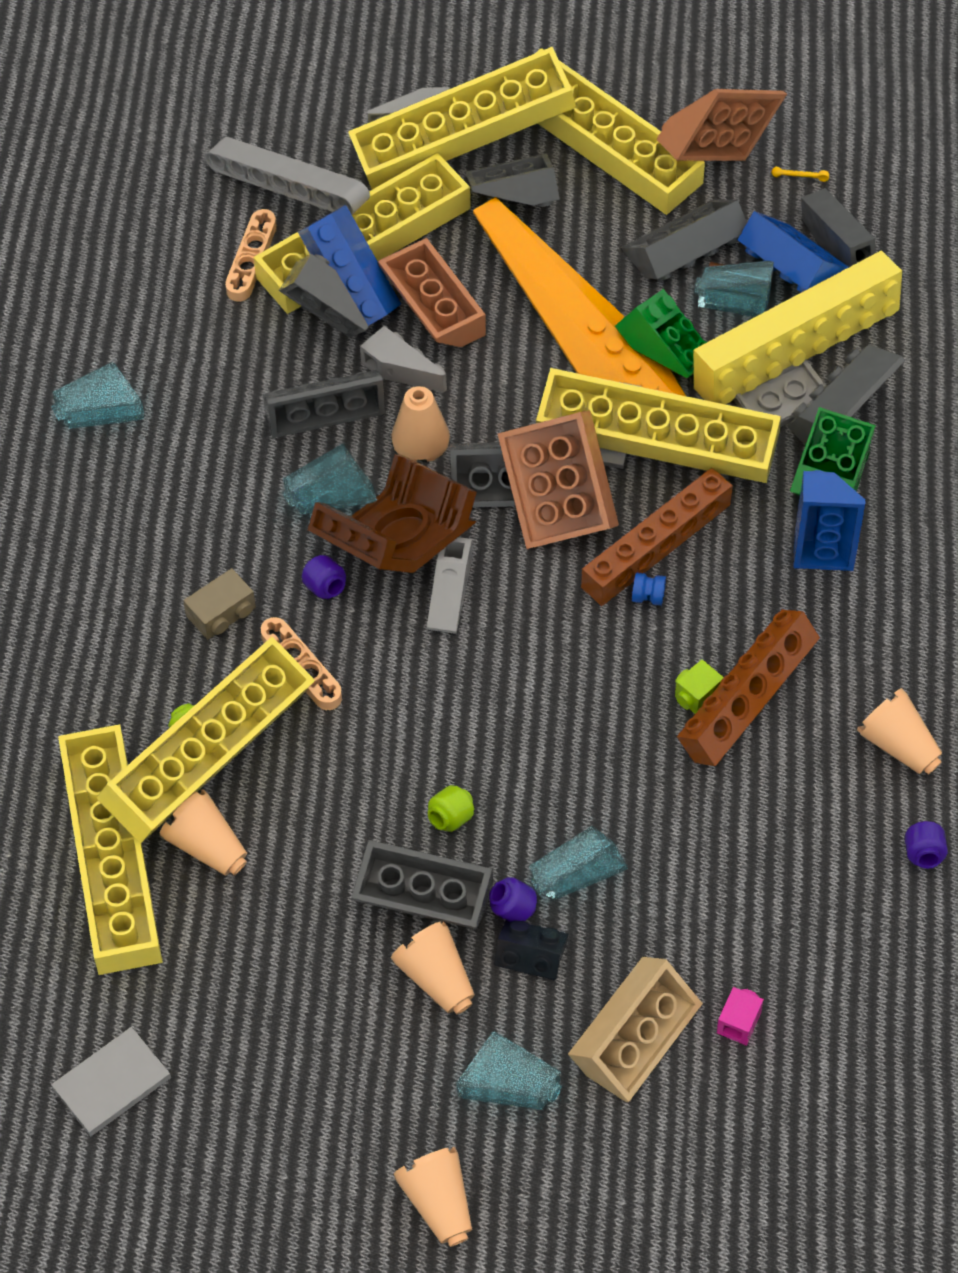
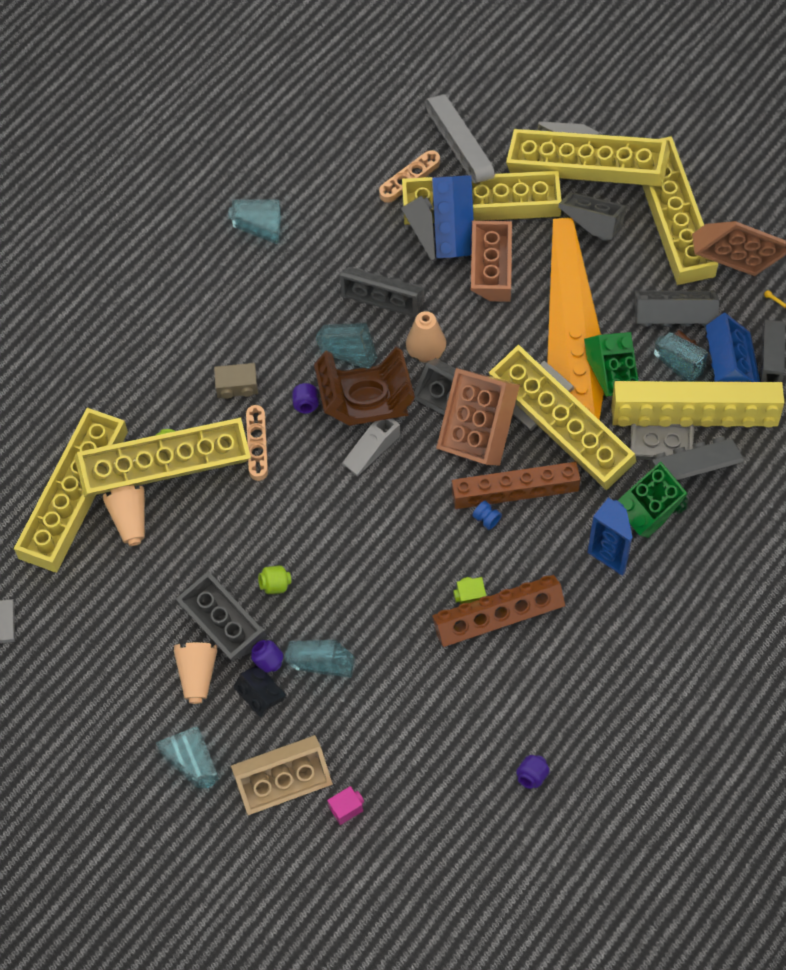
camera: 35 degrees right, 5 degrees up
(401, 362) = (443, 288): light grey slope -> none
(438, 1194) = (100, 800): light nougat cone -> none
(902, 733) = (568, 695): light nougat cone -> none

